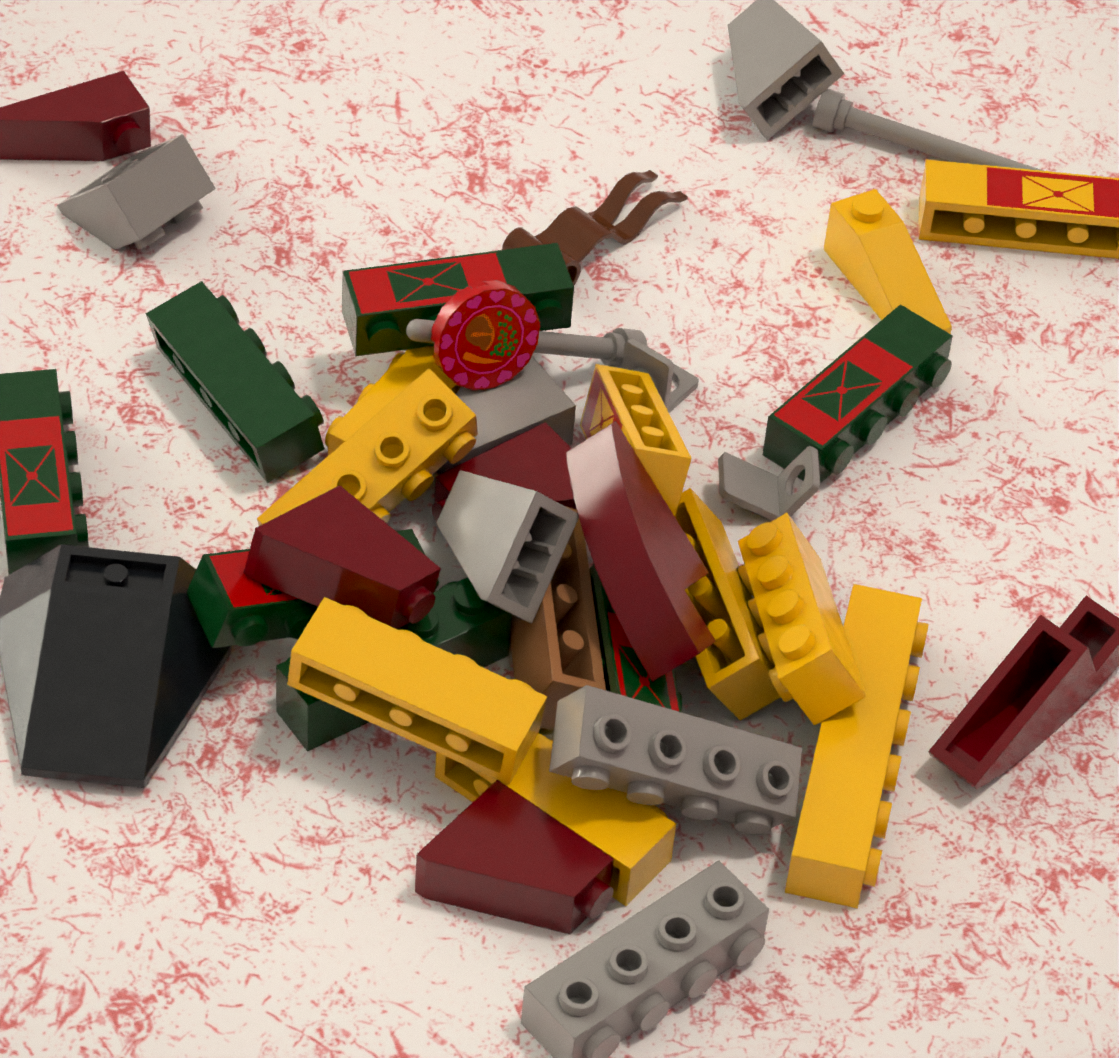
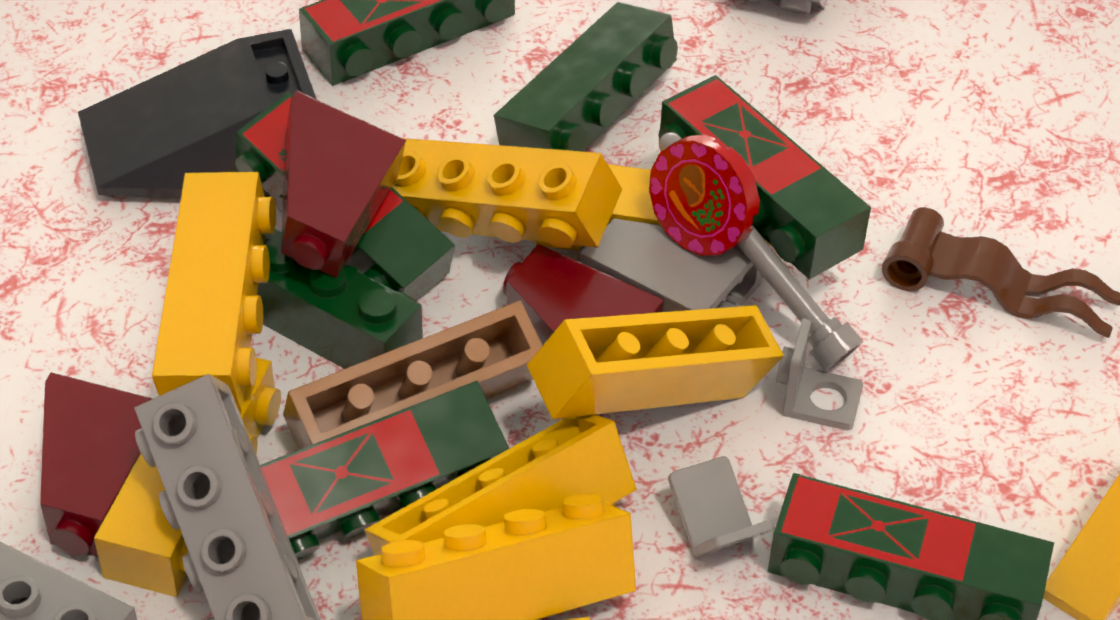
camera: 70 degrees right, 0 degrees up
(506, 540) = (440, 296): light grey slope -> none
(638, 551) = (460, 389): dark red slope -> none

